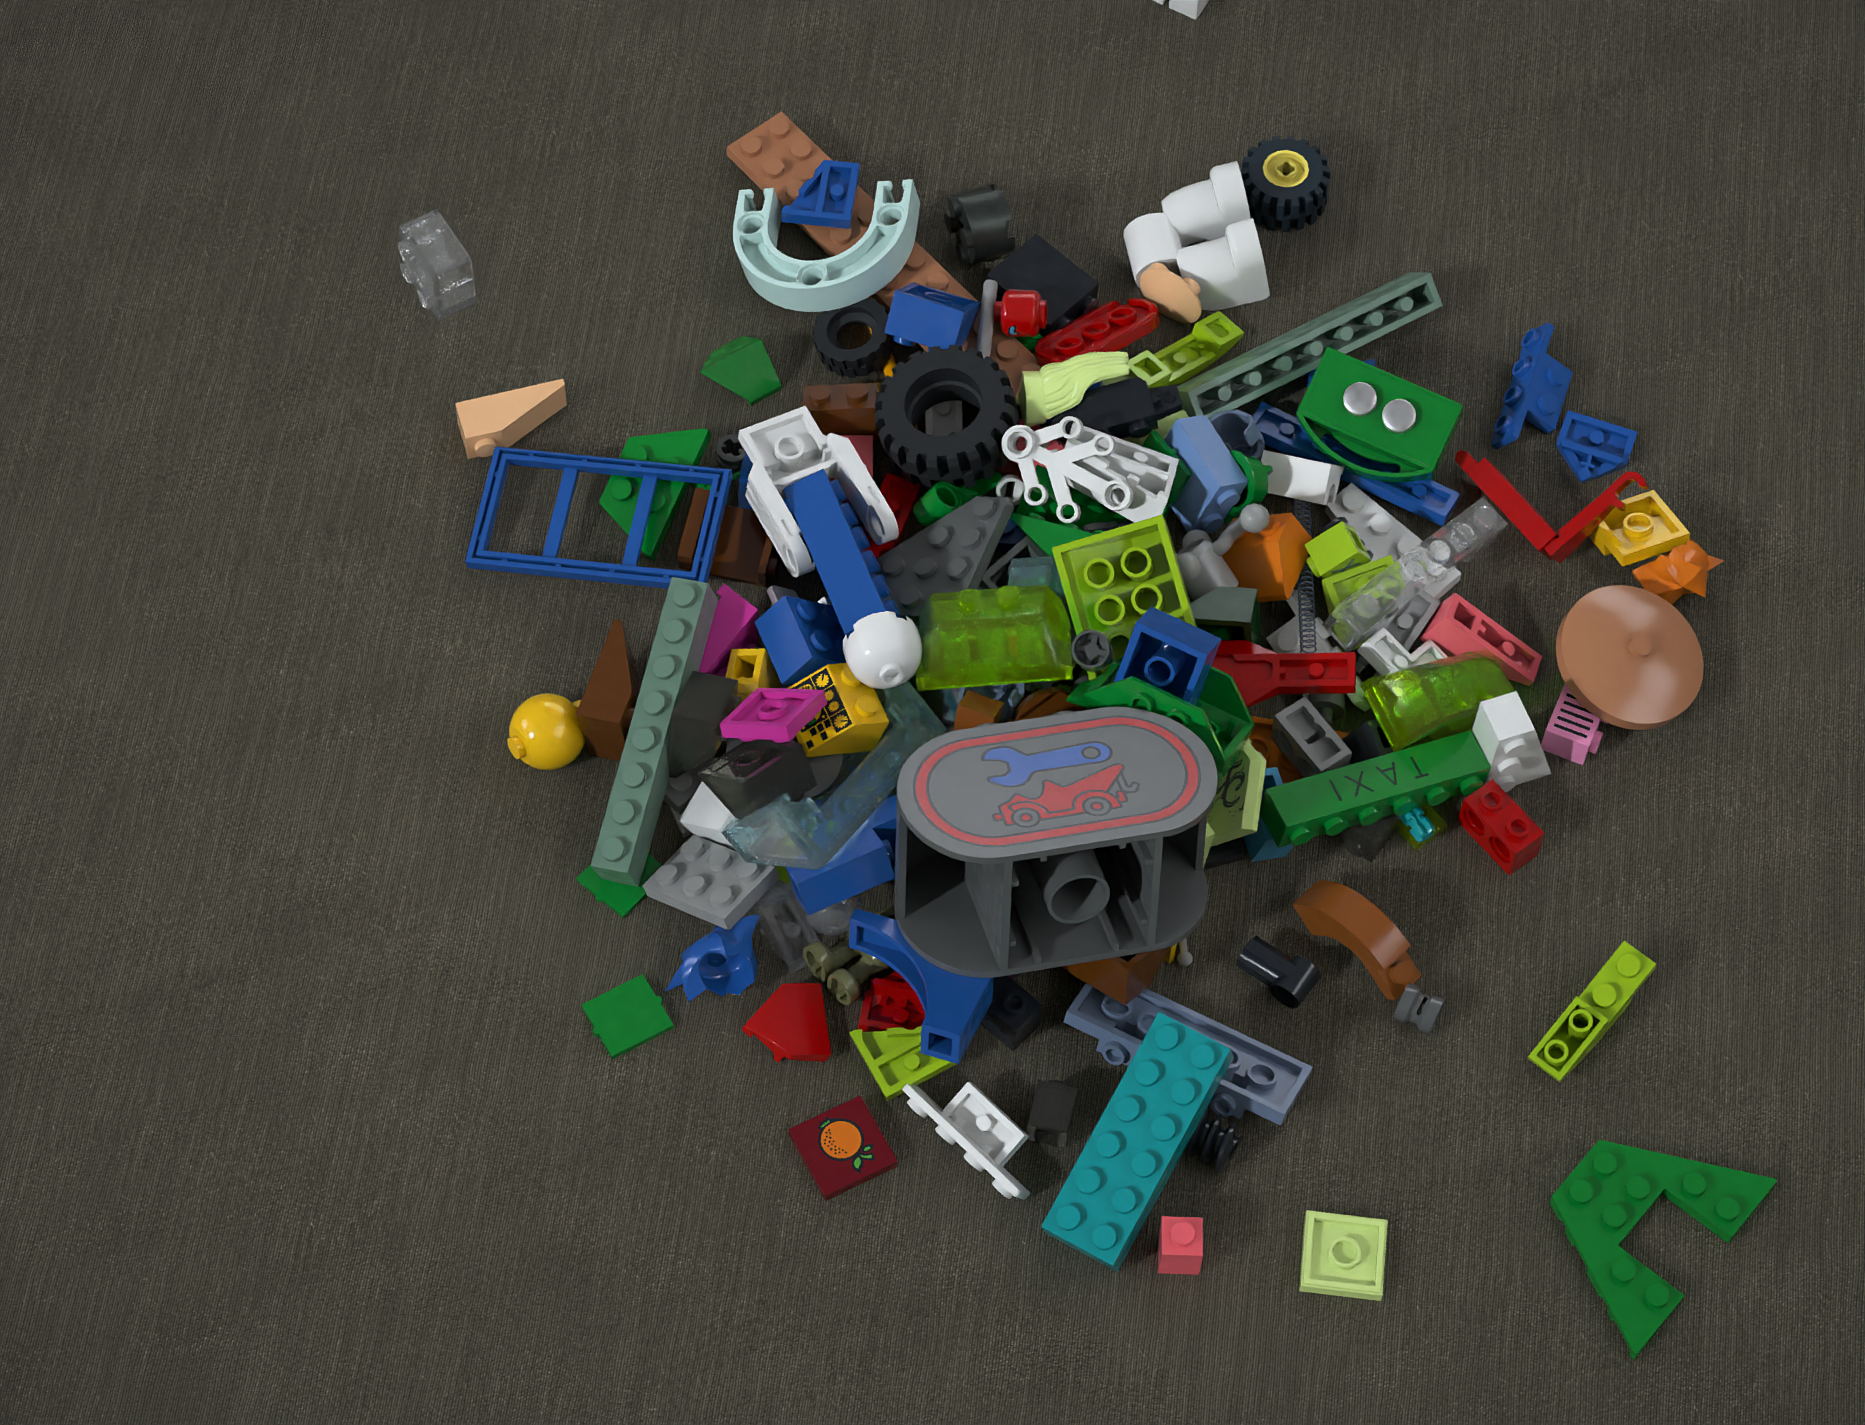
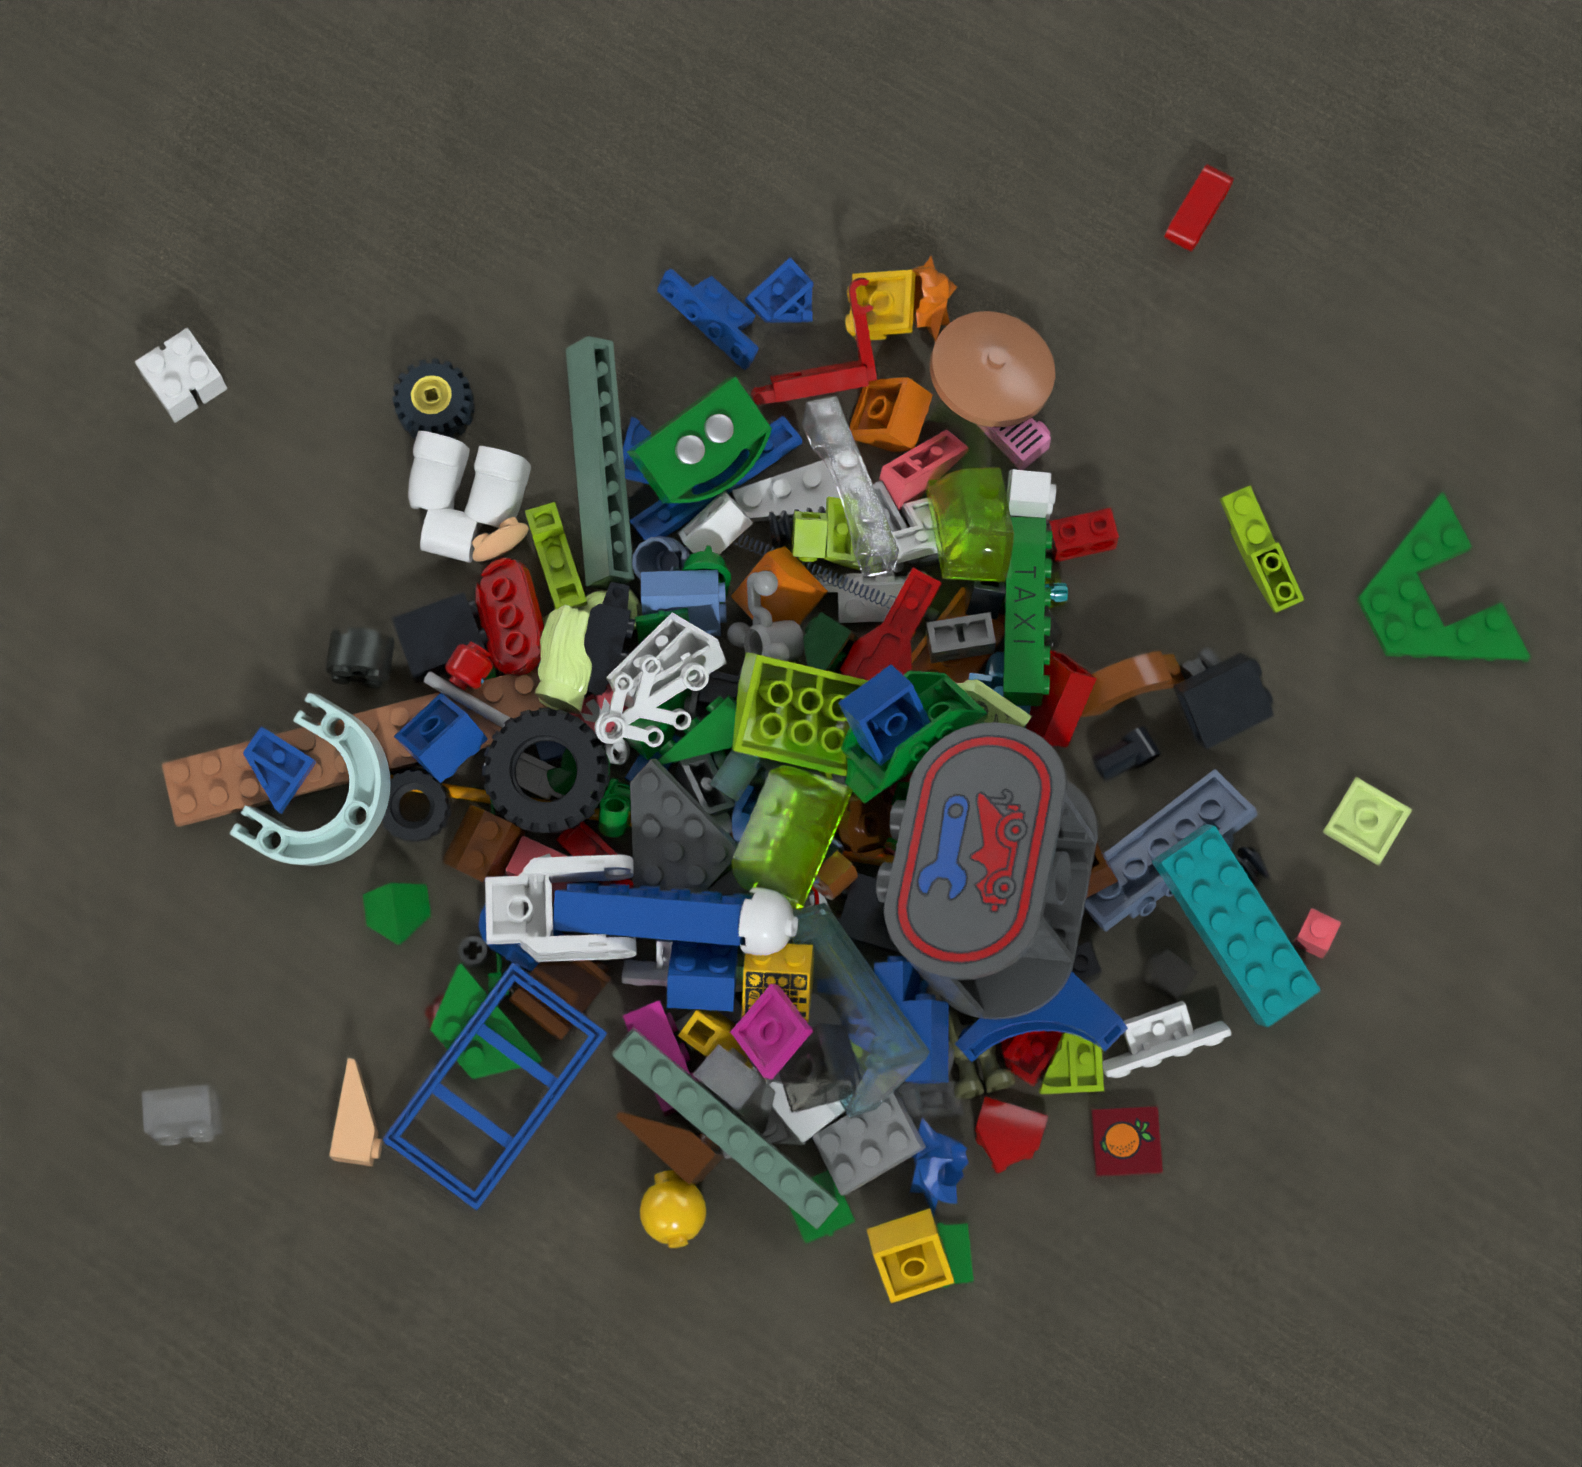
camera: 60 degrees left, 15 degrees up
(608, 975) = (910, 1255): none -> yellow slope
(1087, 646) = (839, 763): dark grey wheel -> none
(1298, 869) = (1066, 700): none -> red slope
(1394, 1038) = (1224, 700): none -> black brick
(1524, 593) = (890, 414): none -> orange slope

